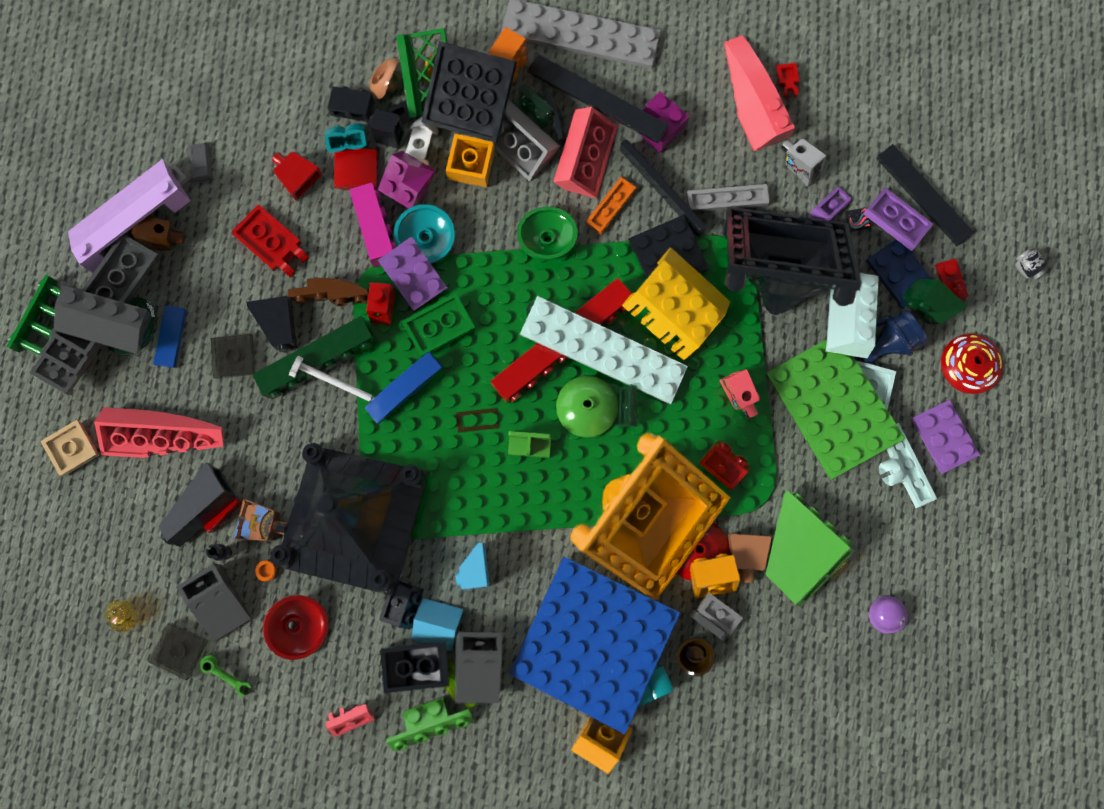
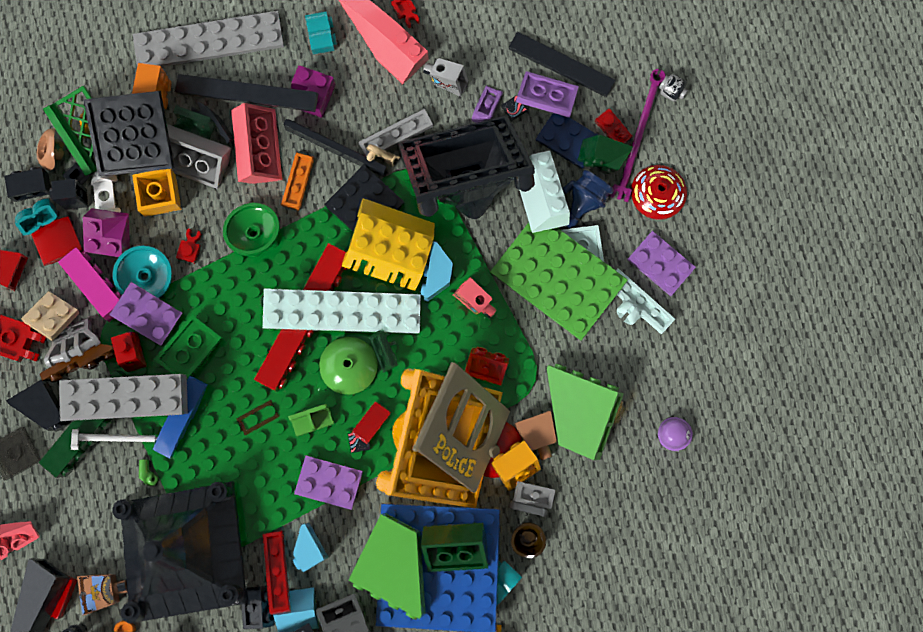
camera: 30 degrees left, 0 degrees up
(320, 238) = (50, 316): none -> tan plate
(330, 266) = (69, 337): none -> light grey plate
(347, 428) = (145, 474): none -> bright green arm
(359, 345) = (123, 397): none -> light grey brick
(434, 579) = (276, 572): none -> red tile
(478, 229) = (189, 250): none -> red plate
(520, 513) = (328, 482): none -> medium lavender plate
(550, 623) = (393, 566): none -> bright green slope
(567, 485) = (356, 444): none -> tile
(586, 472) = (371, 423): none -> red tile
(620, 631) = (455, 547): none -> dark green slope
(650, 516) = (438, 442): none -> dark tan door
(693, 68) = (320, 32): none -> teal brick
(702, 206) = (376, 151): none -> tan piece
(713, 352) = (437, 273): none -> medium azure slope
(936, 343) = (621, 188): none -> magenta hinge

